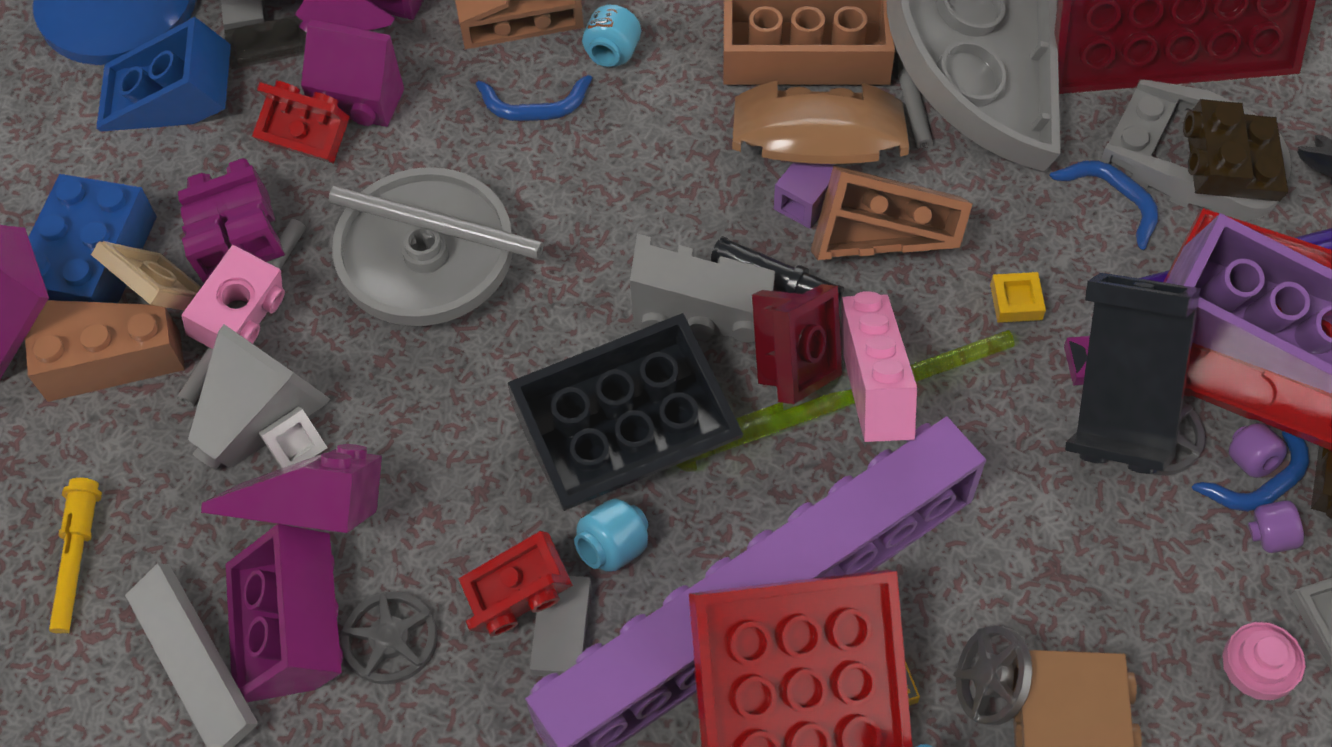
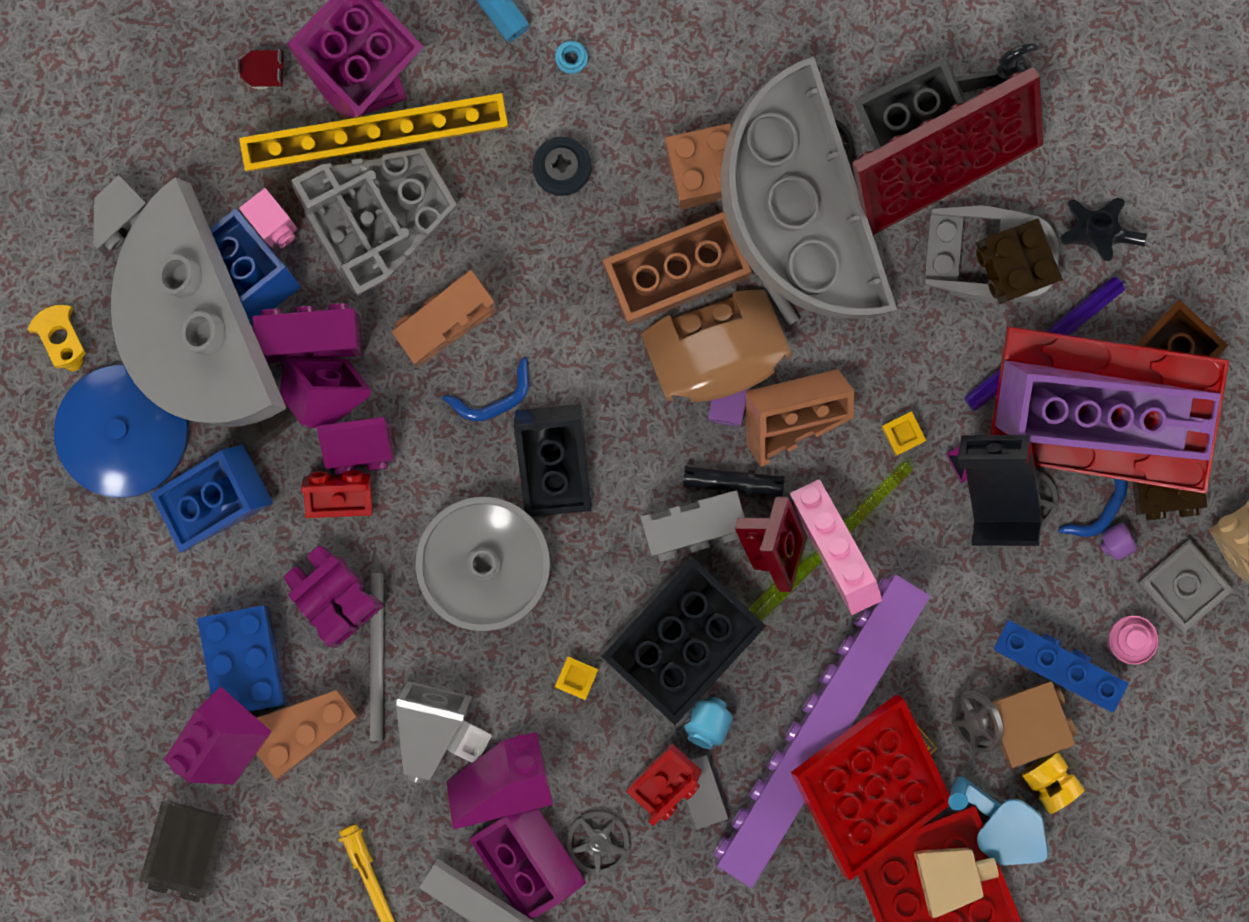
camera: 25 degrees left, 25 degrees up
(148, 274) = (312, 669): tan tile -> none
(235, 278) = (369, 645): bright pink brick -> none
(436, 222) = (487, 549): light grey piece -> none
(469, 419) = (576, 678): none -> yellow plate
(566, 174) = (552, 460): none -> black slope
(611, 35) = (529, 322): medium azure head -> none
(1124, 185) = (948, 304): blue animal -> none
(1147, 643) = (1060, 666): none -> blue bracket
(1257, 450) = (1092, 490): medium lavender piece -> none

